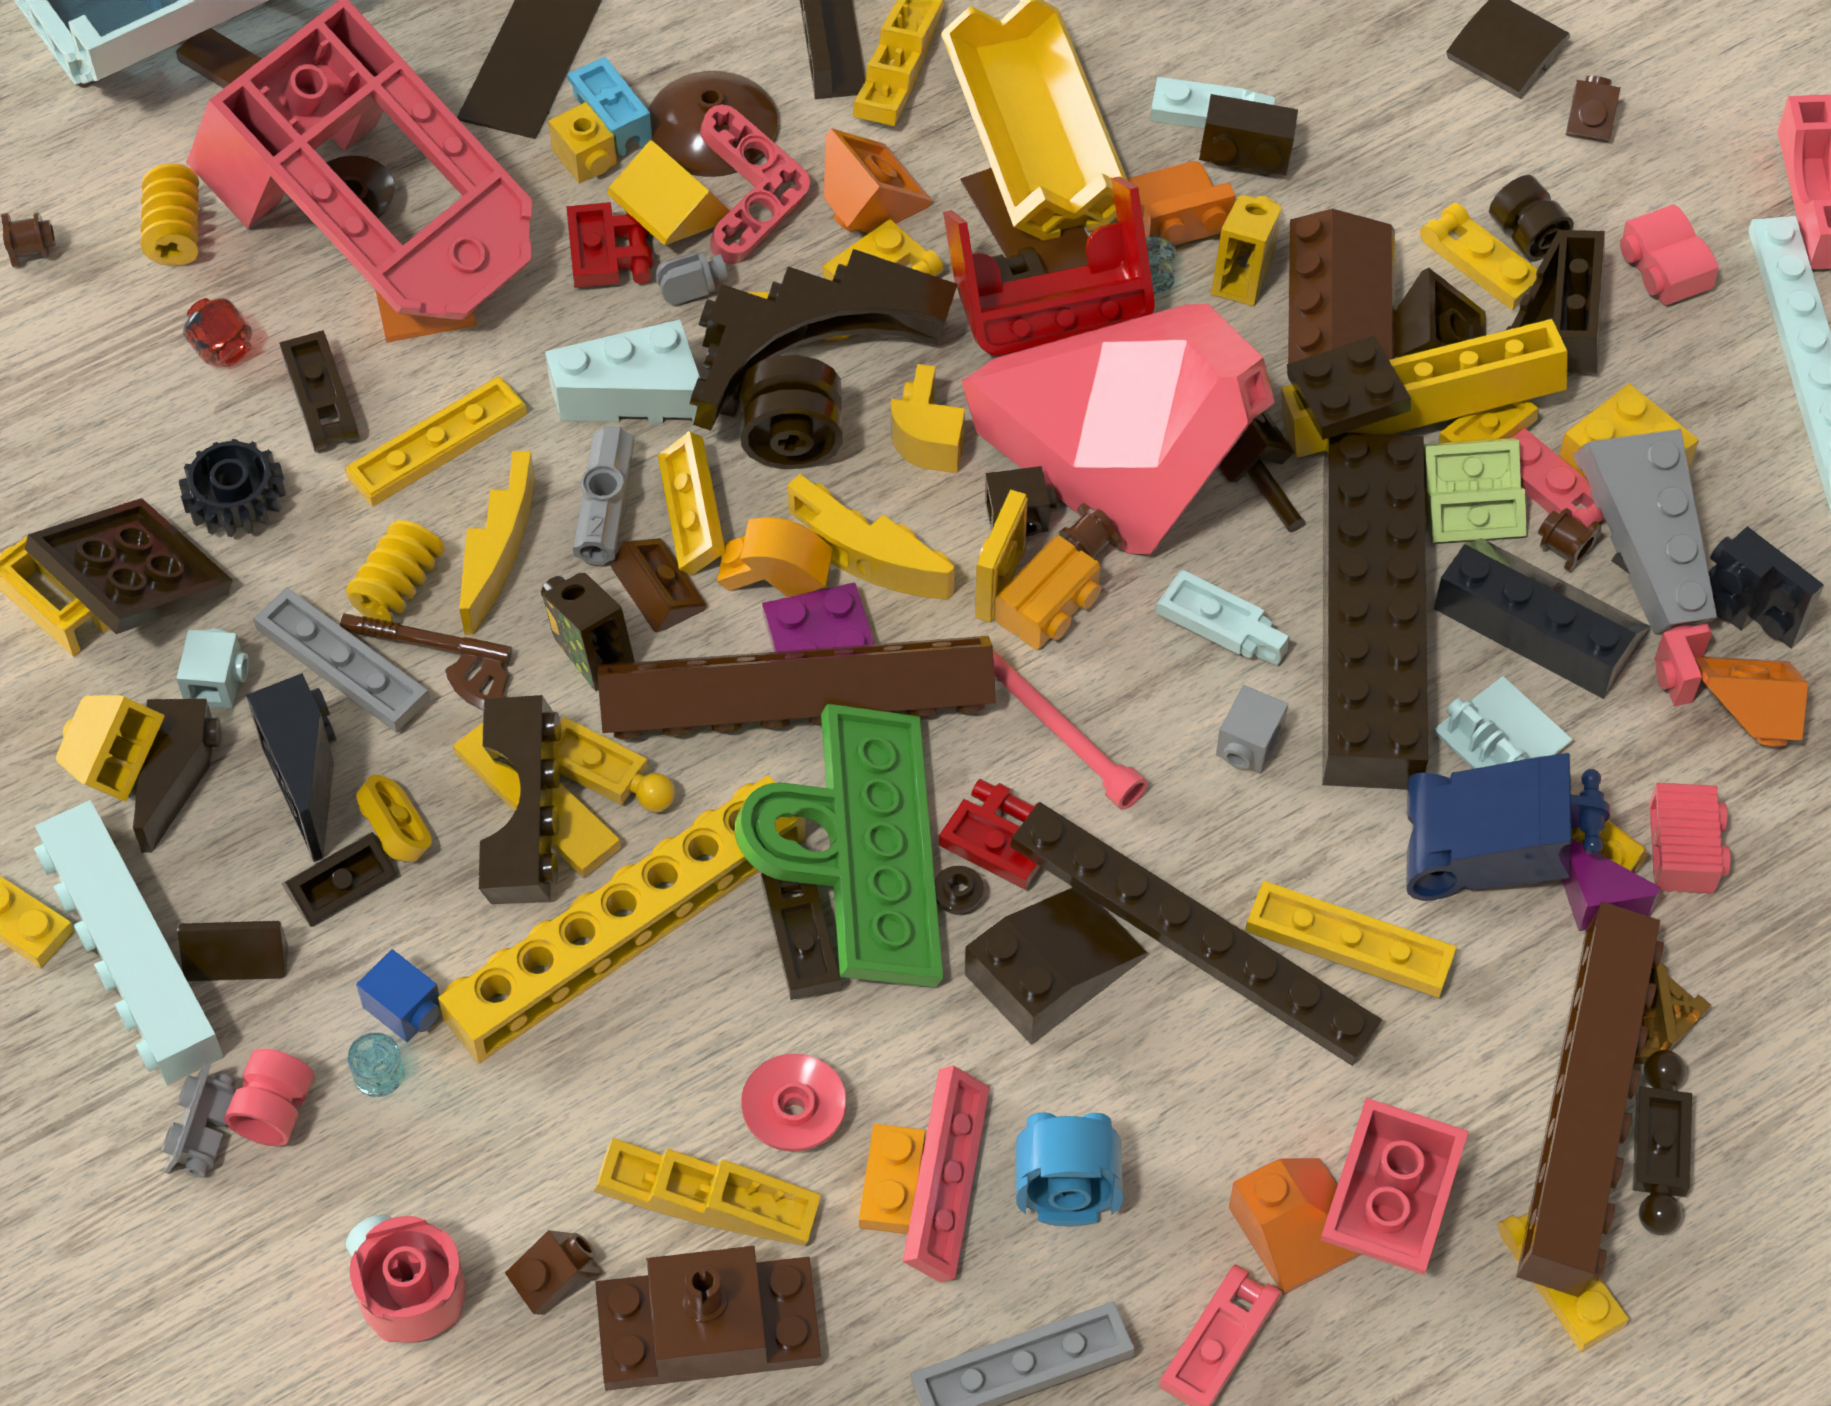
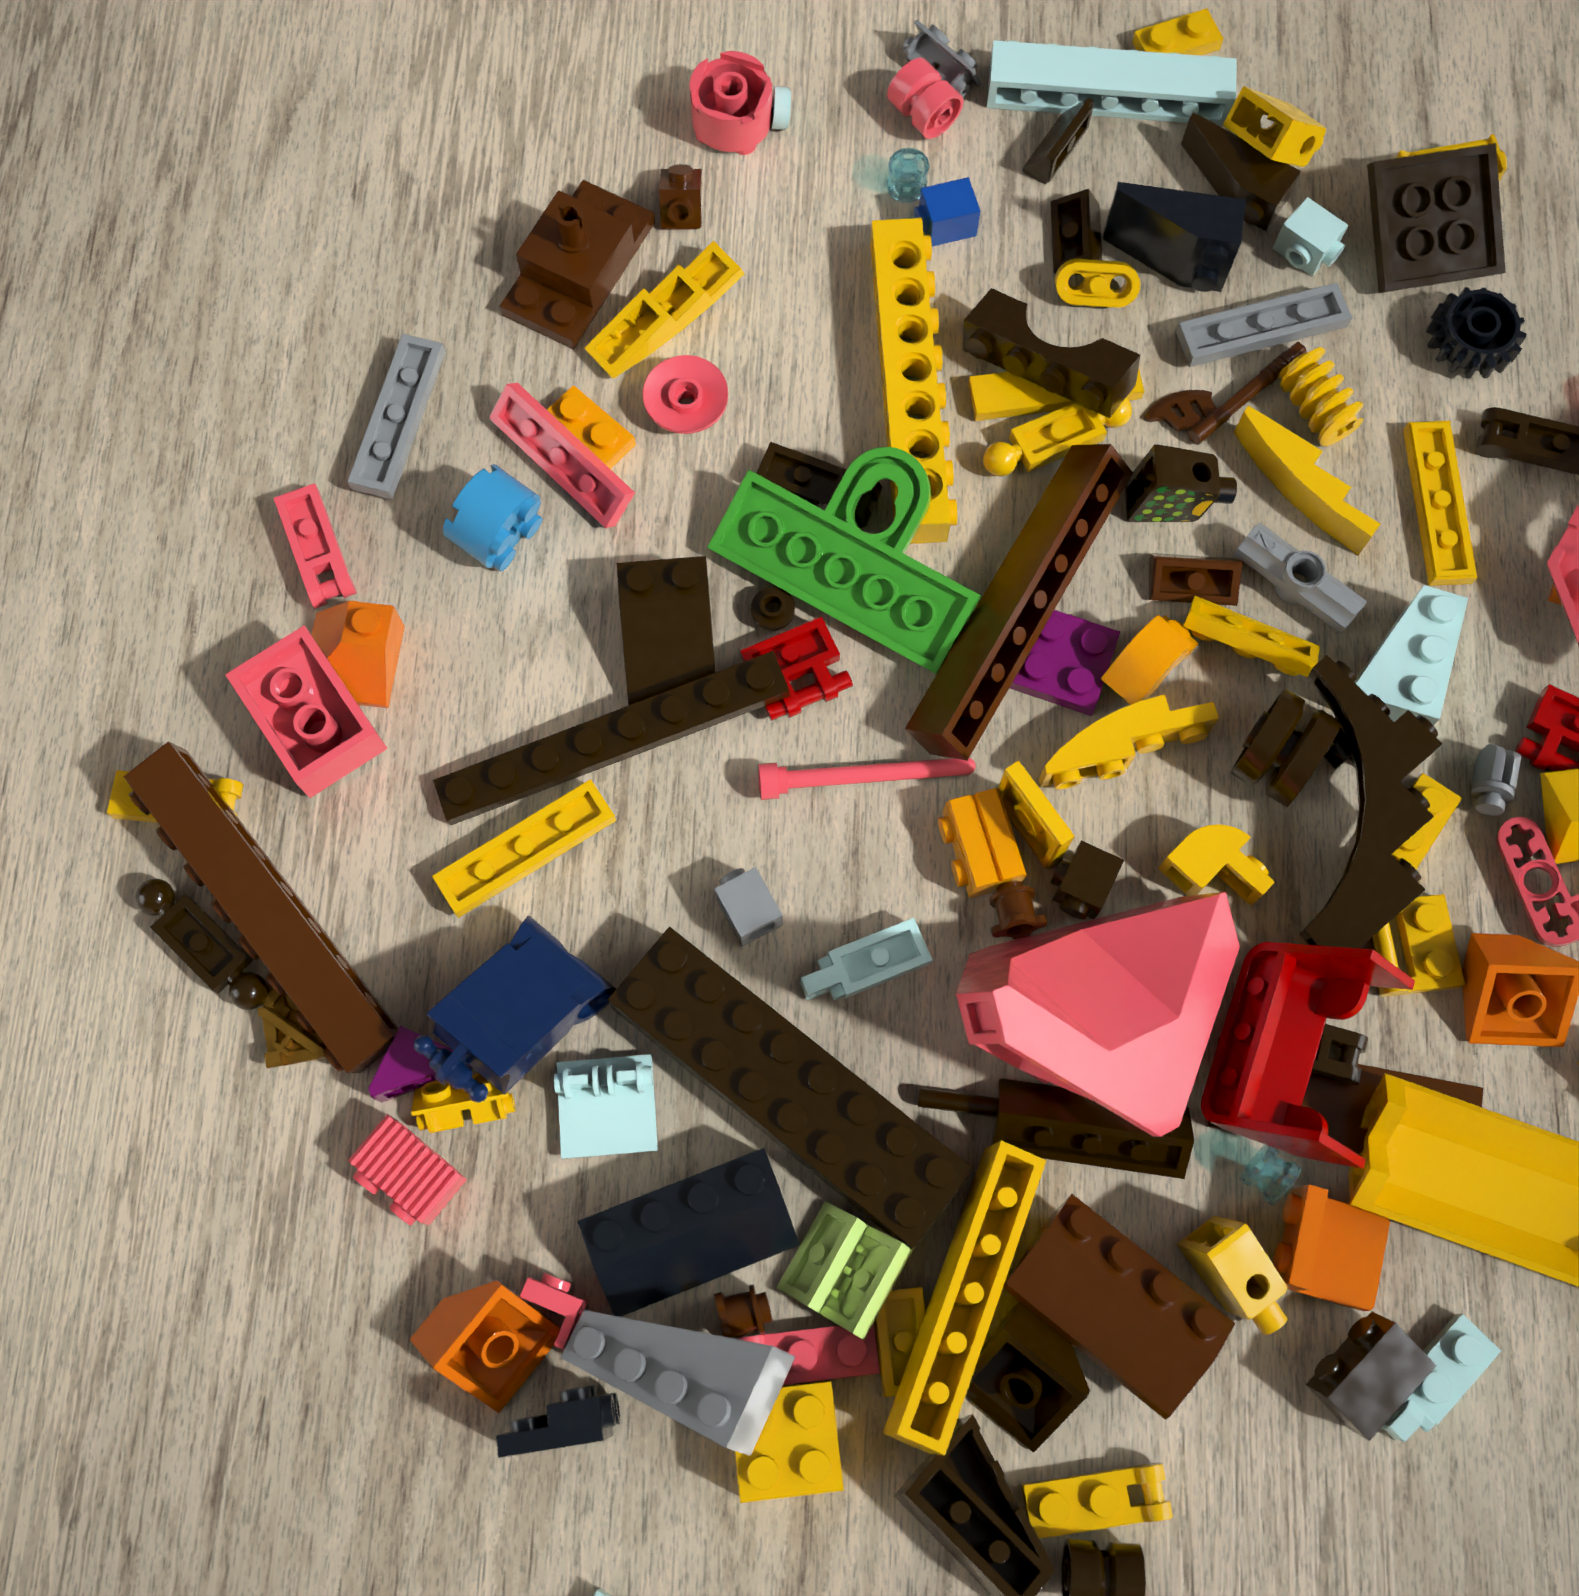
camera: 125 degrees right, 15 degrees up
(1348, 387) = (997, 1207): dark brown plate -> none

